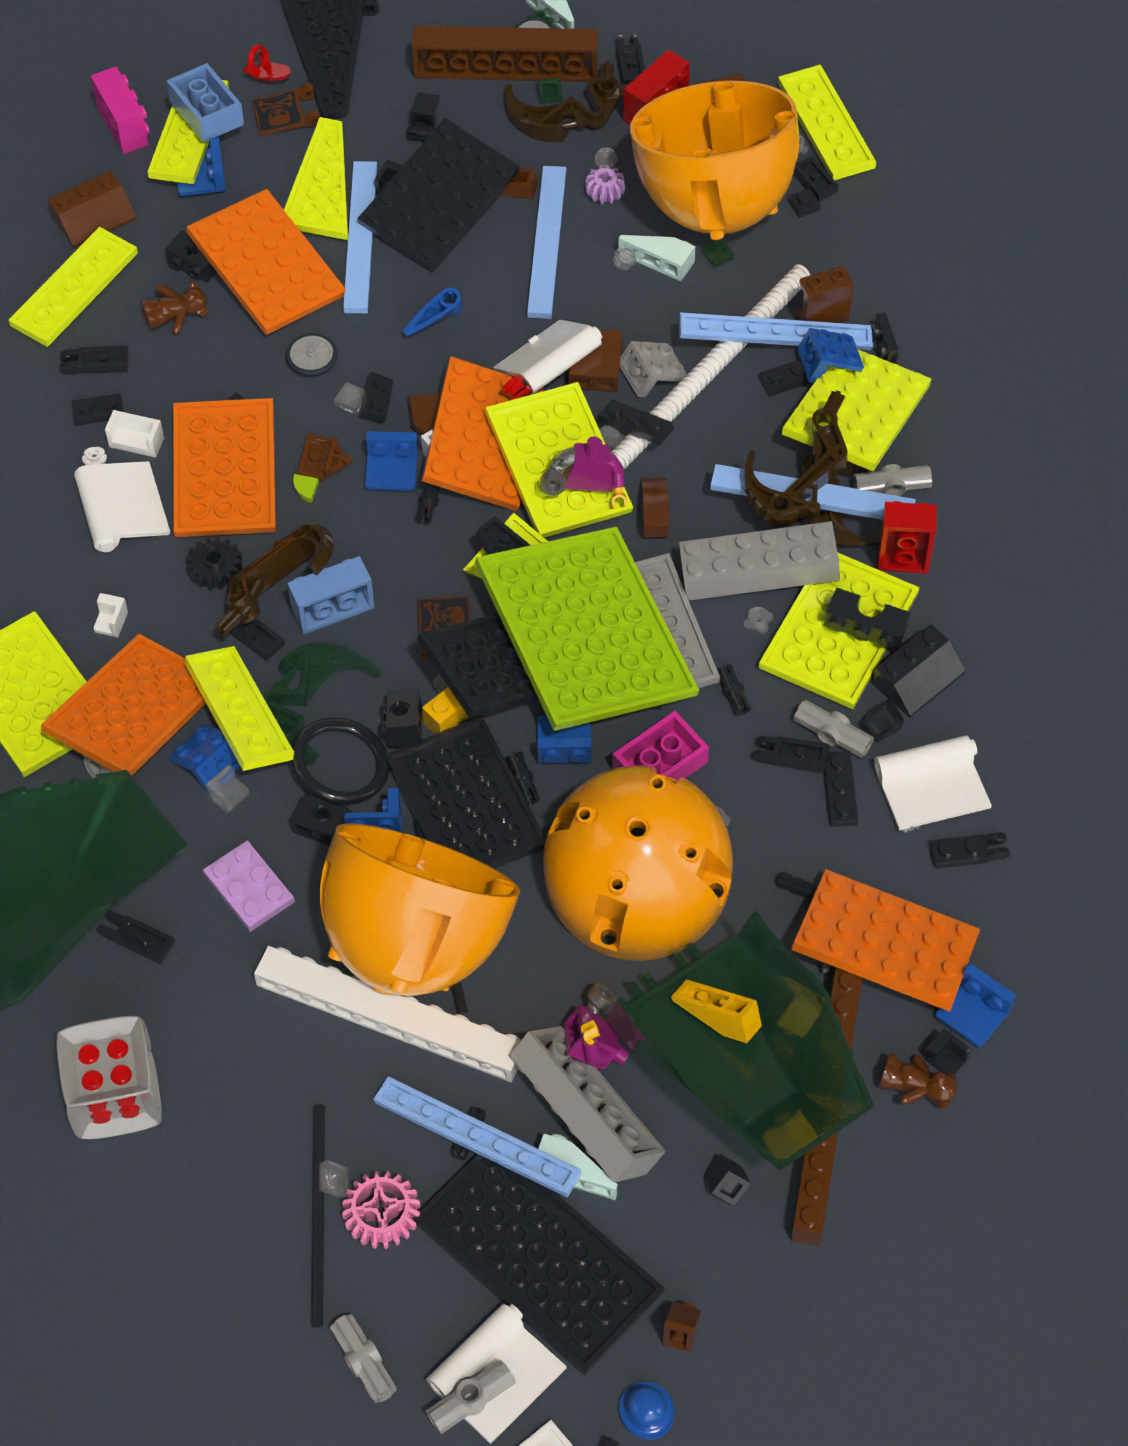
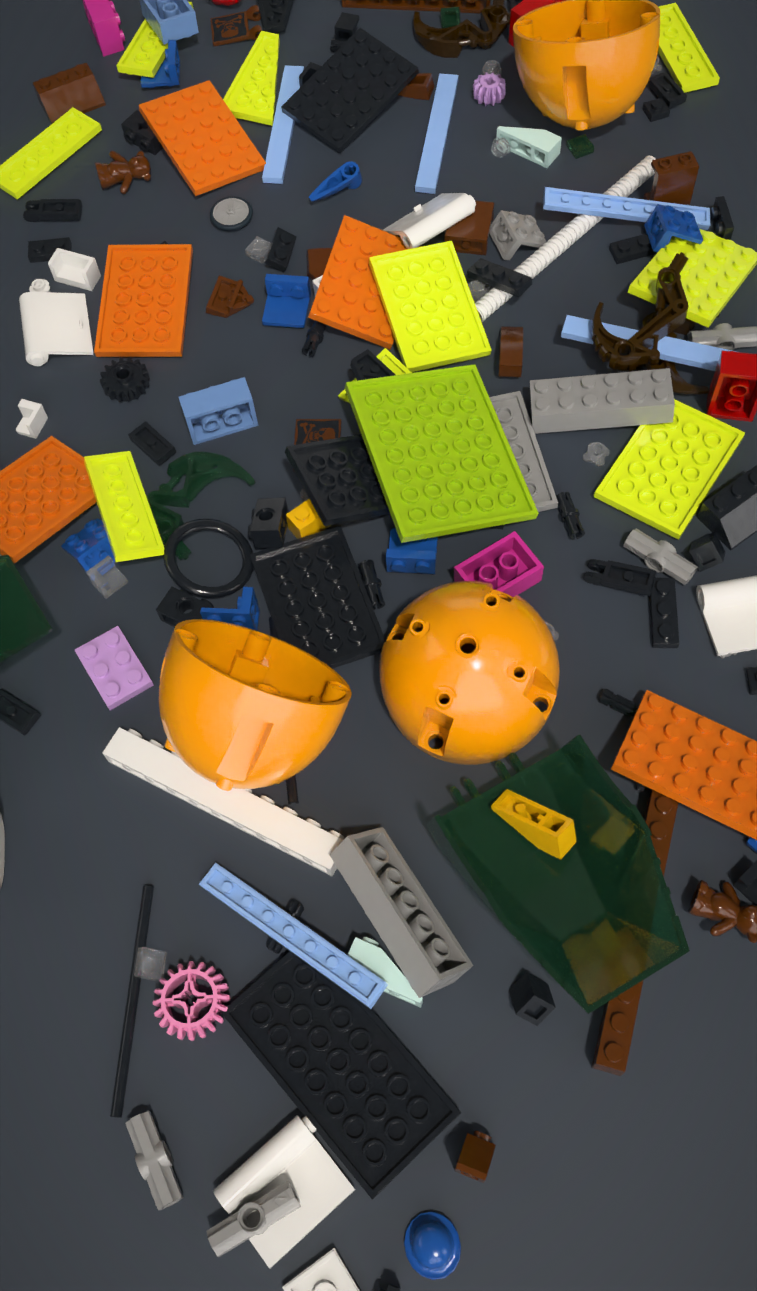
camera: 10 degrees right, 5 degrees up
(287, 554) = (142, 409): dark brown piece -> none
(306, 487) = (212, 320): lime tile -> none
(516, 388) = (397, 242): red wheel -> none
(585, 468) = (452, 312): magenta torso -> none
(590, 1034) = (408, 838): magenta torso -> none
(884, 629) = (712, 468): black arch -> none

